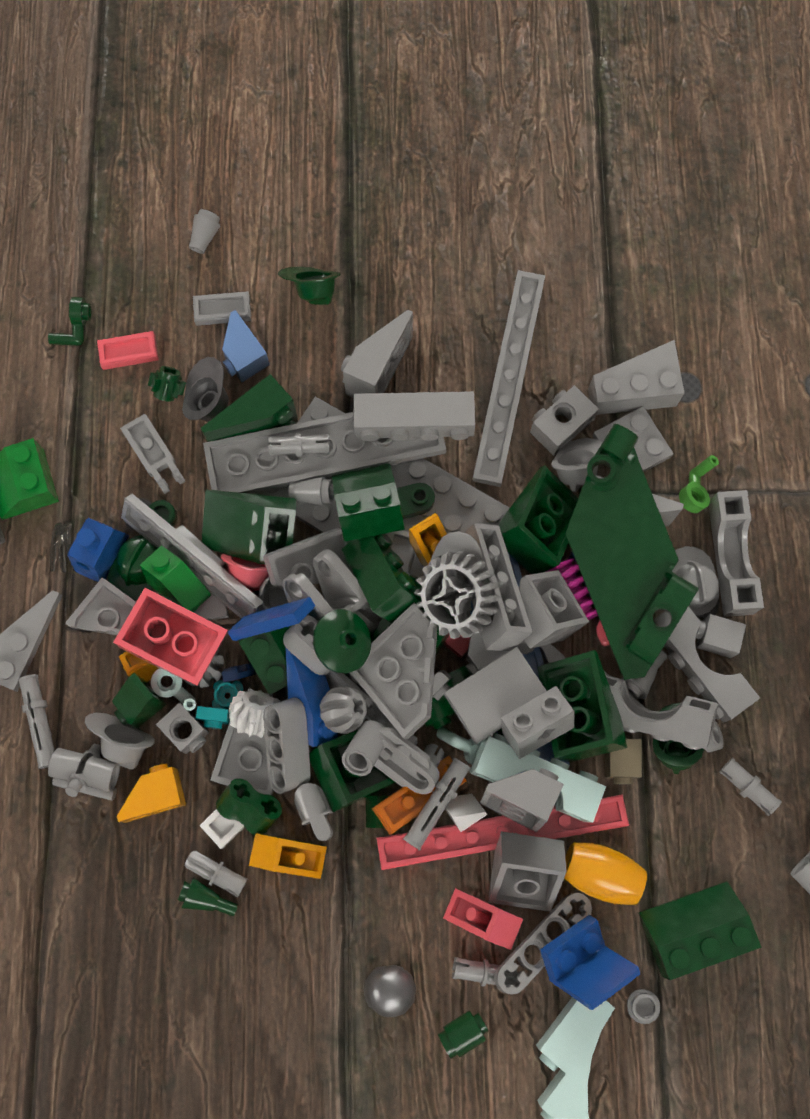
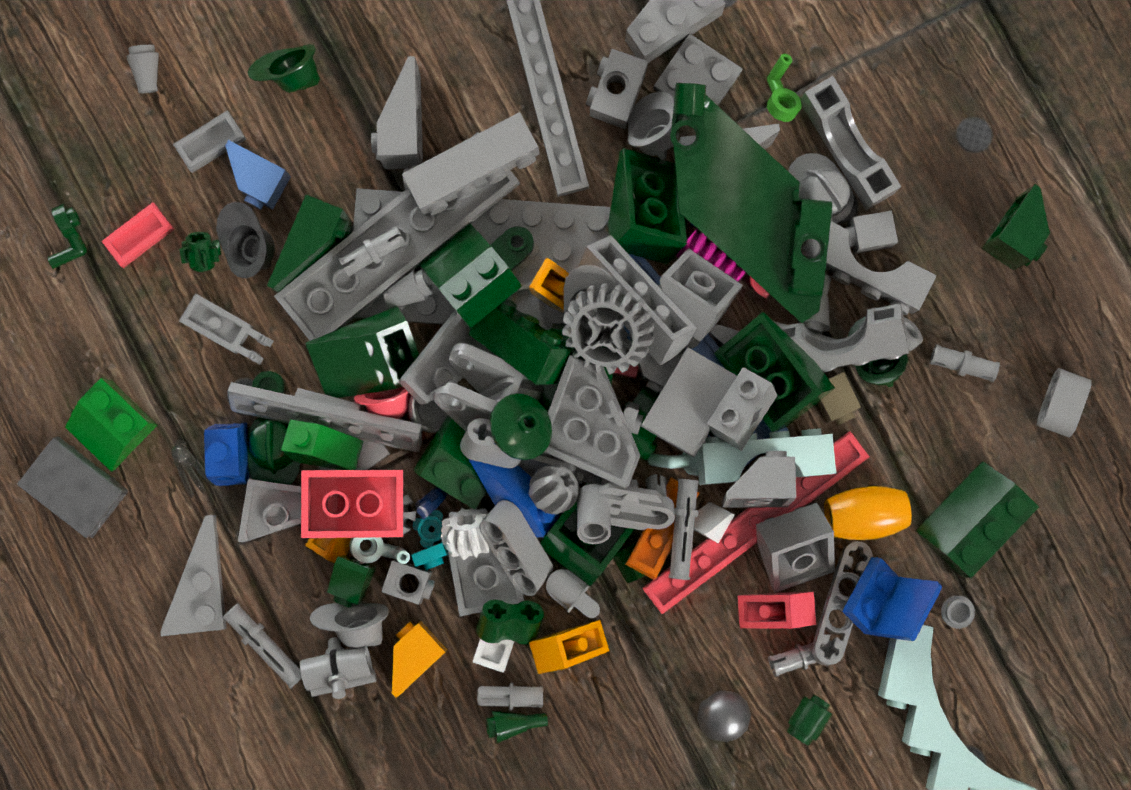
camera: 25 degrees left, 10 degrees up
(271, 619) = (441, 439): blue tile -> none

